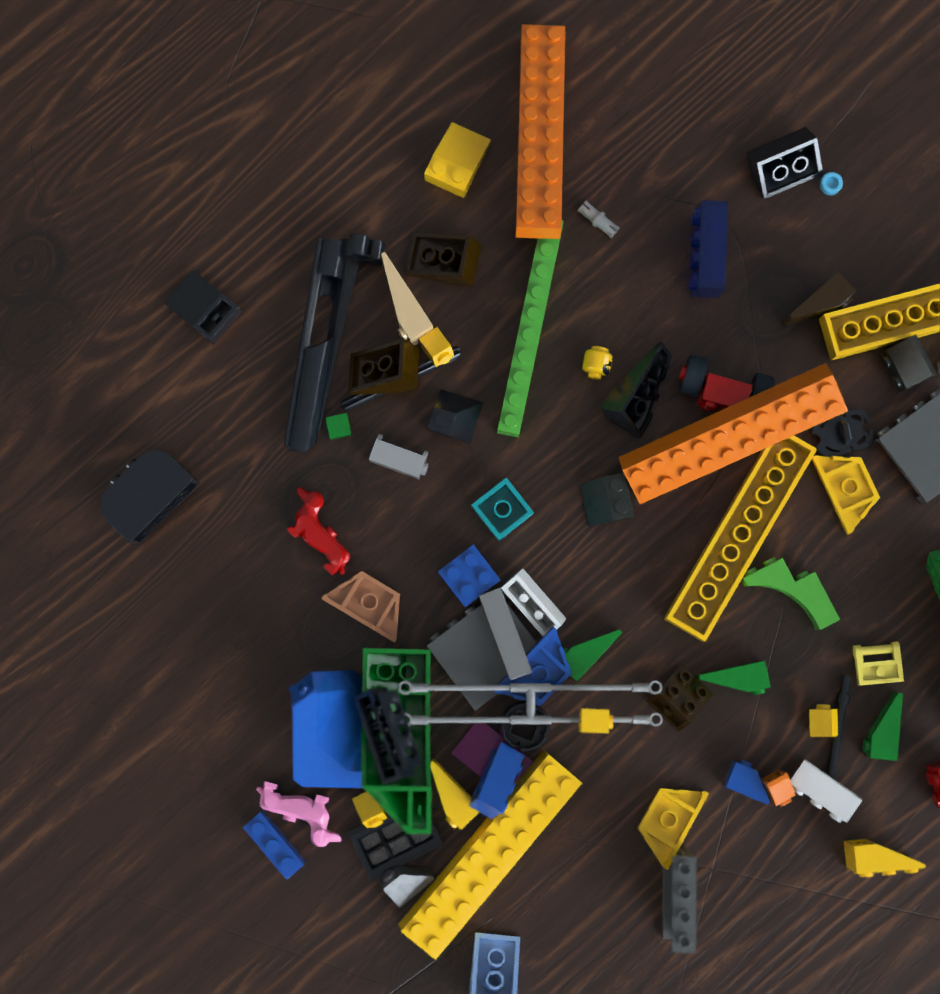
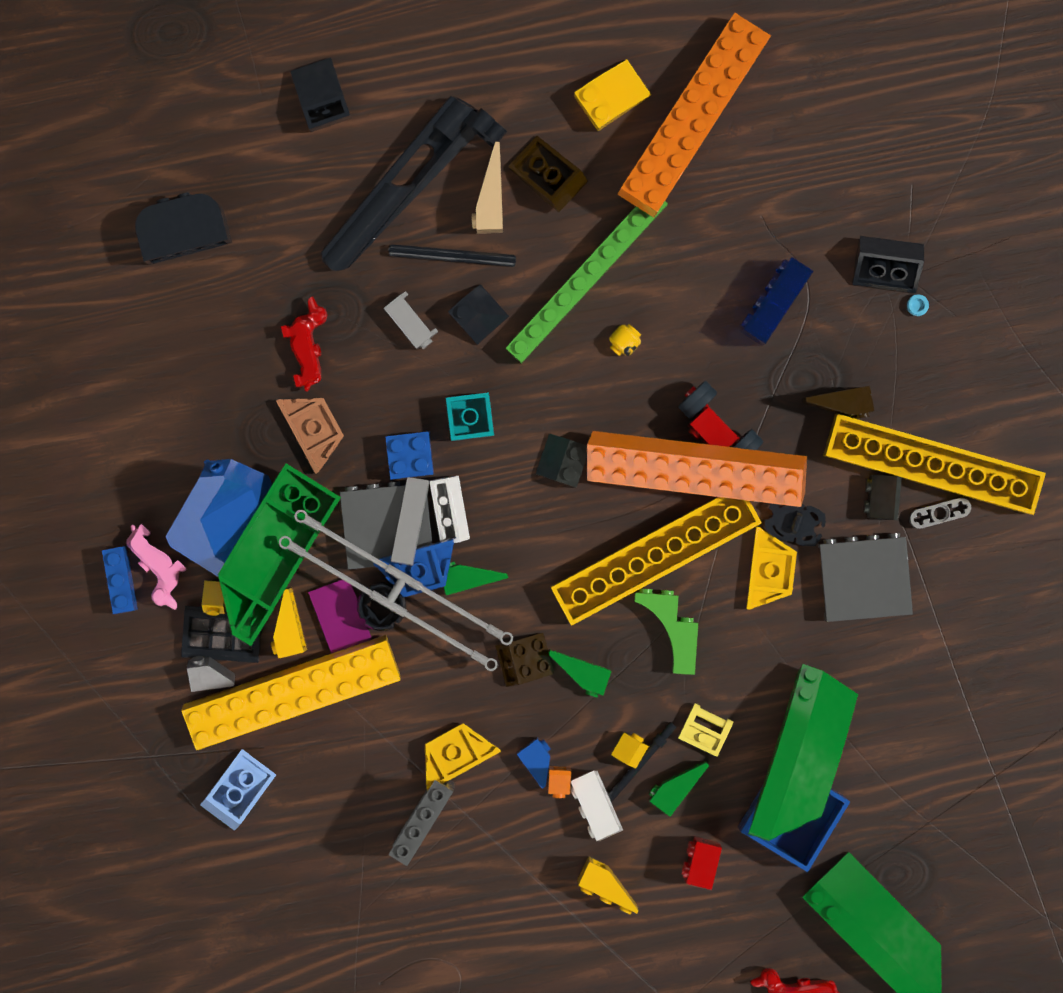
camera: 30 degrees right, 5 degrees up
(338, 426) = (376, 264): green tile -> none
(384, 369) = (442, 239): dark brown slope -> none
(387, 724) = (268, 537): black brick -> none
(436, 347) = (496, 247): yellow brick -> none
(497, 781) = (331, 636): blue brick -> none
(595, 721) = (439, 635): yellow brick -> none
(598, 219) = (700, 218): light grey pin -> none
(633, 397) = (640, 386): black wedge -> none

